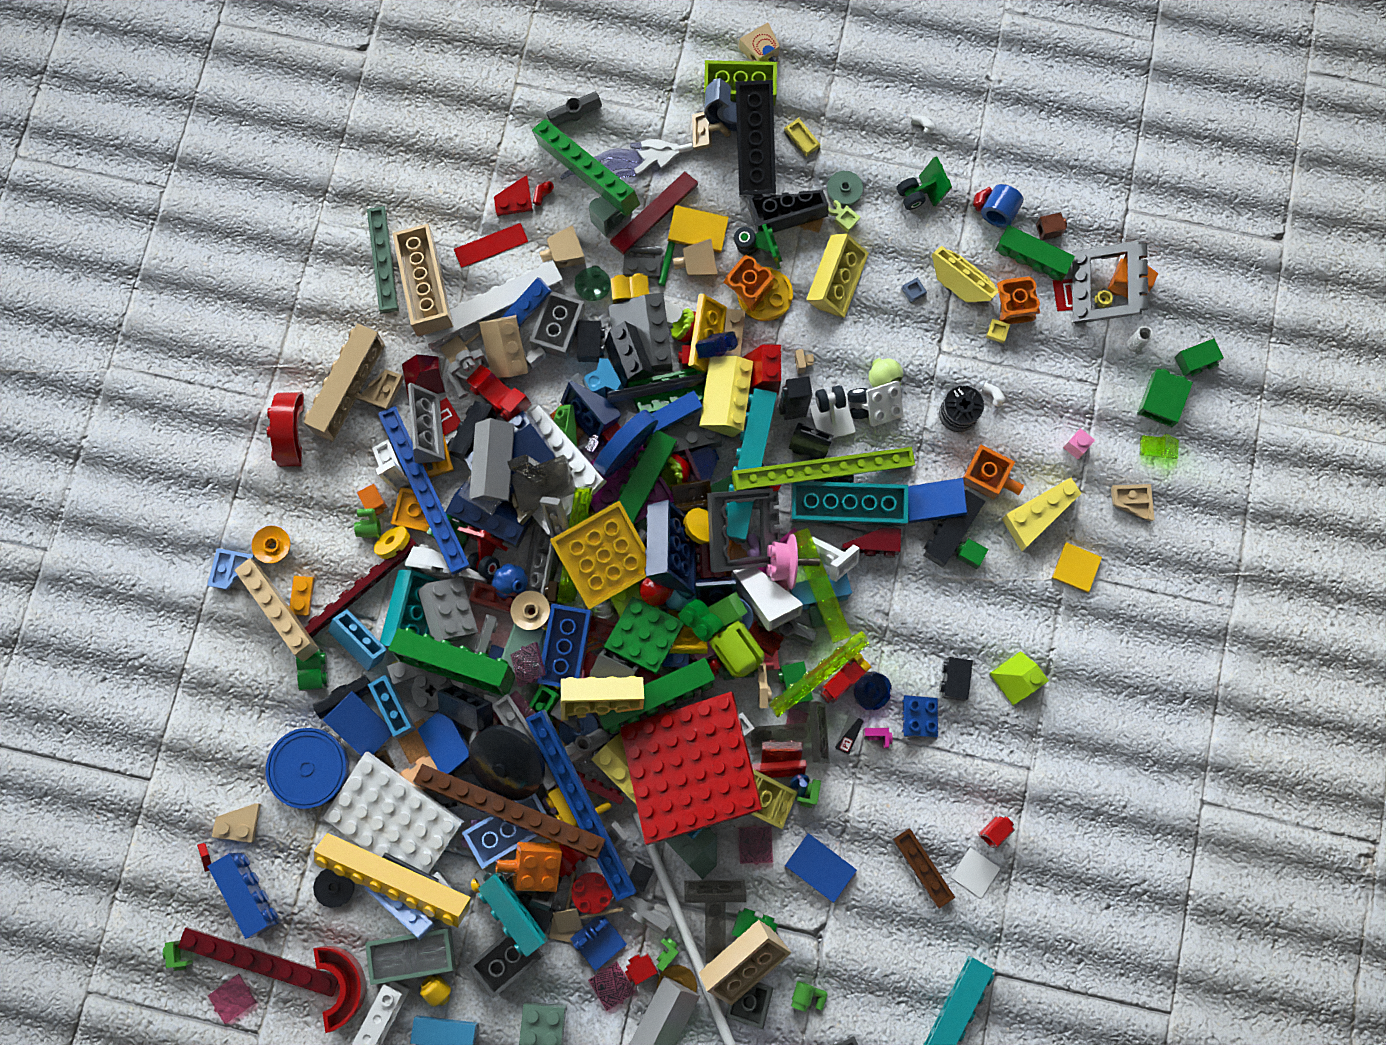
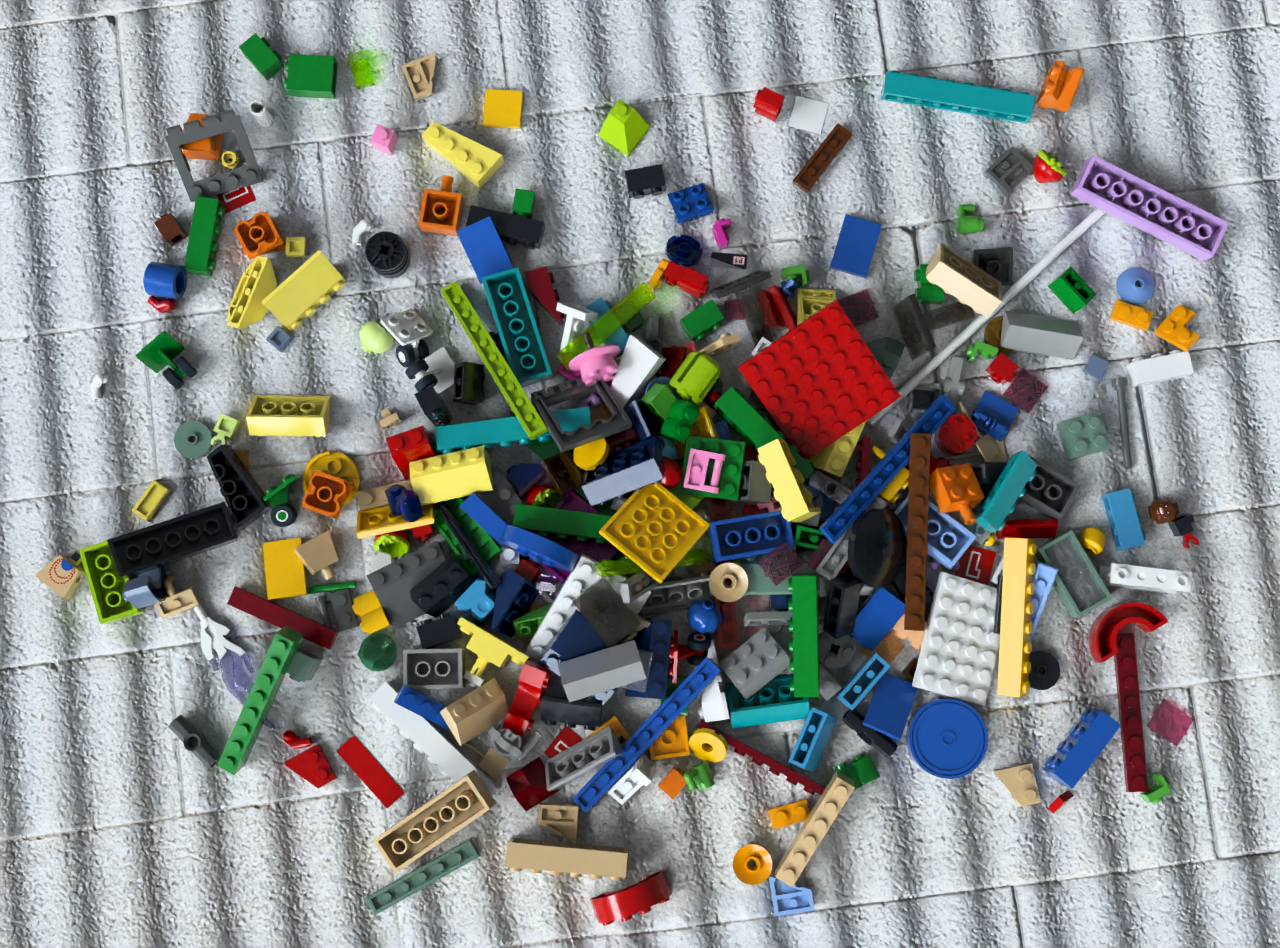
camera: 105 degrees left, 5 degrees up
(459, 865) = (976, 565): none -> red sticker
(473, 930) = (1028, 528): none -> red plate
(555, 377) = (489, 648): none -> light yellow brick
(564, 249) = (351, 694): tan torso -> none
(645, 617) = (697, 470): none -> bright pink plate
(813, 678) = (694, 303): clear neon green plate -> none
(949, 321) = (304, 291): none -> light yellow slope

